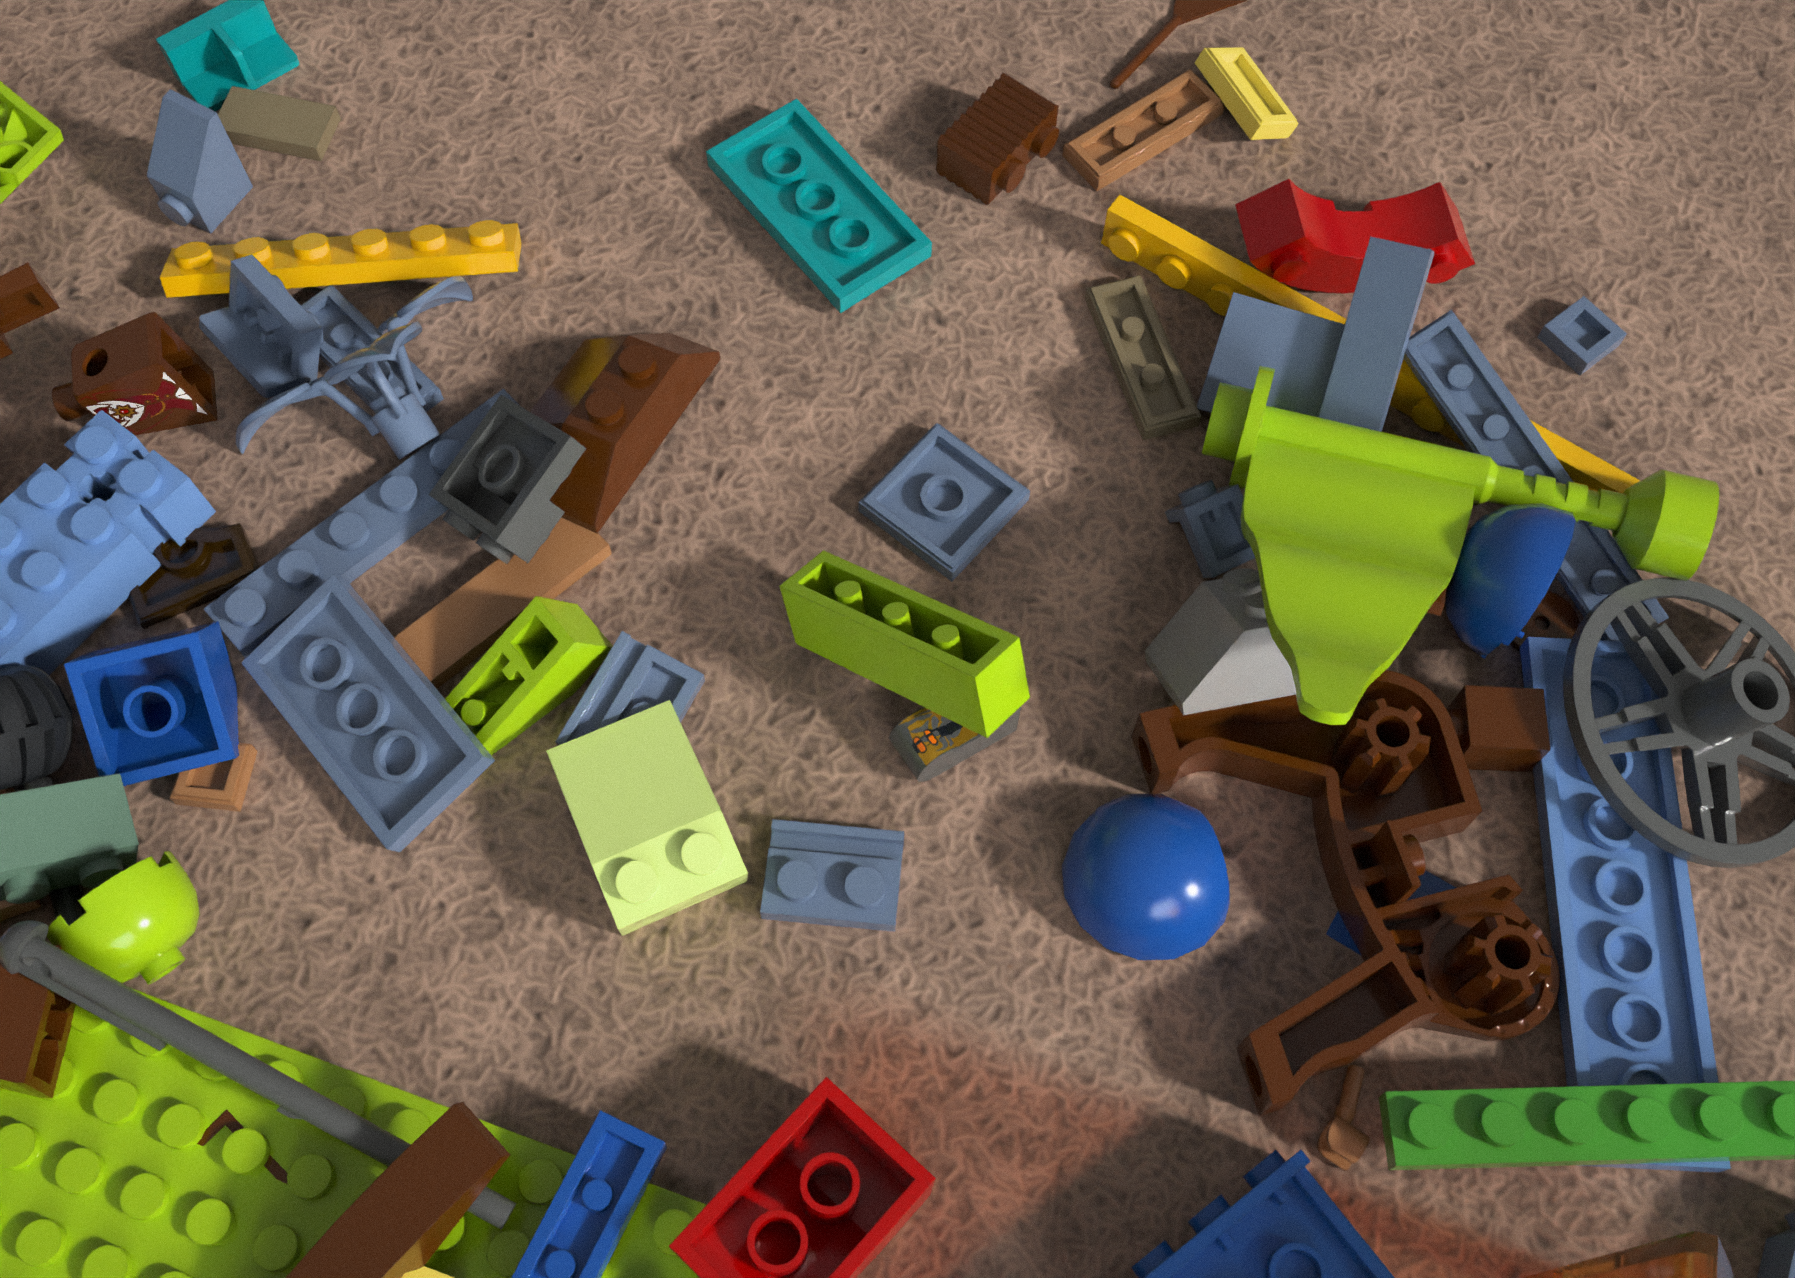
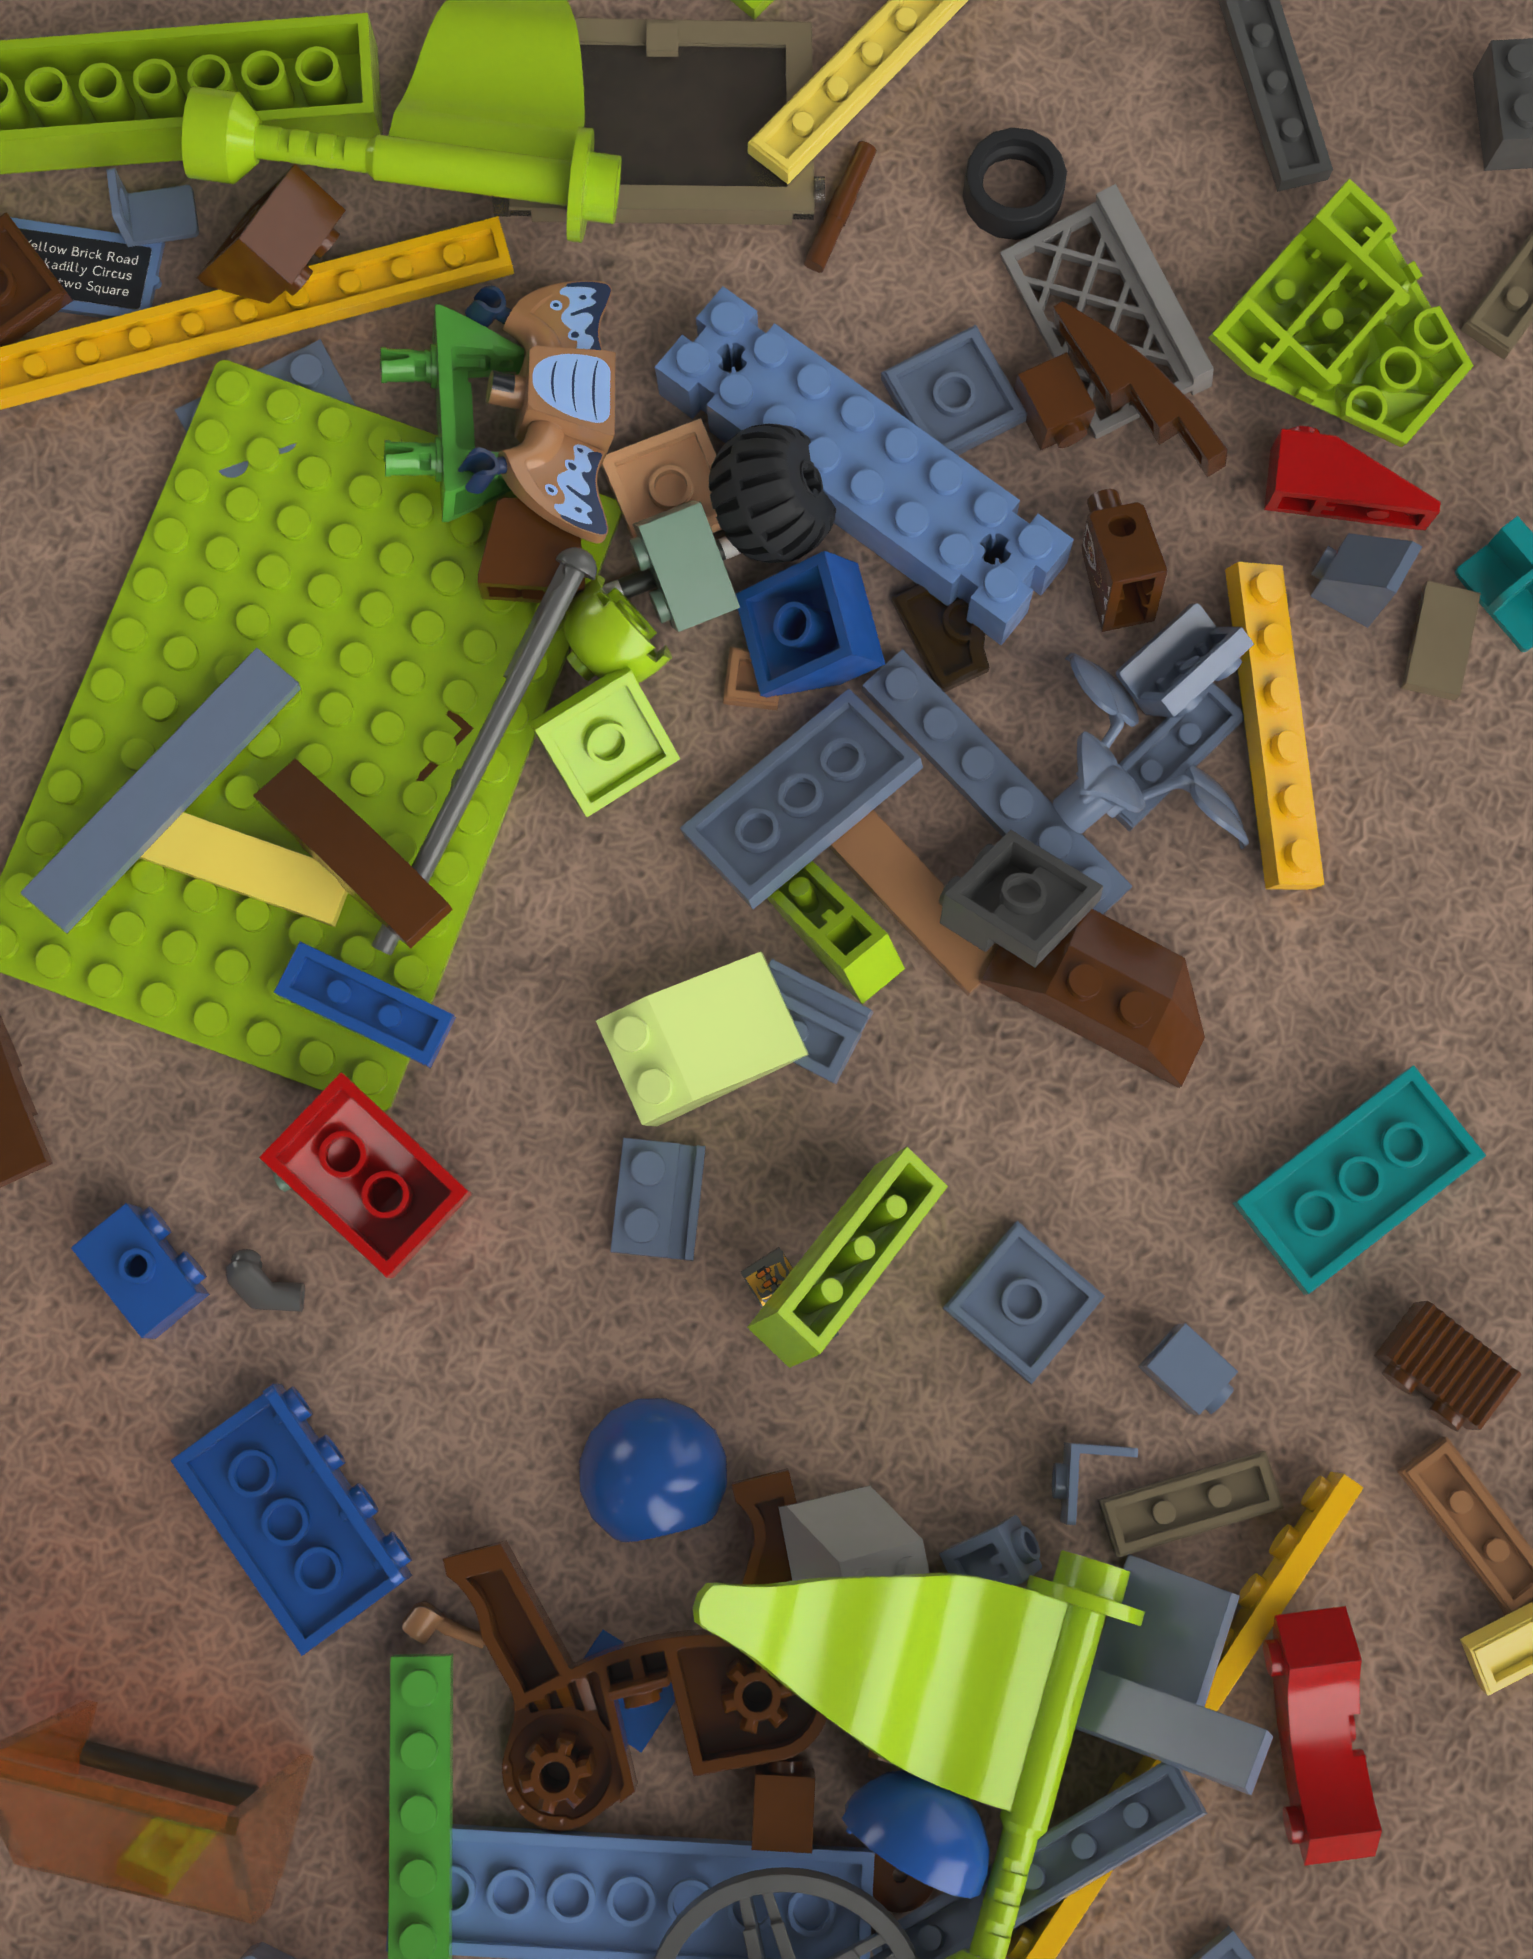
camera: 90 degrees right, 15 degrees up
(89, 194) = (1336, 481): none -> red slope
(263, 933) = (605, 740): none -> lime plate
(1009, 346) = (1190, 1371): none -> sand blue brick
(1124, 453) = (1066, 1474): none -> sand blue bracket

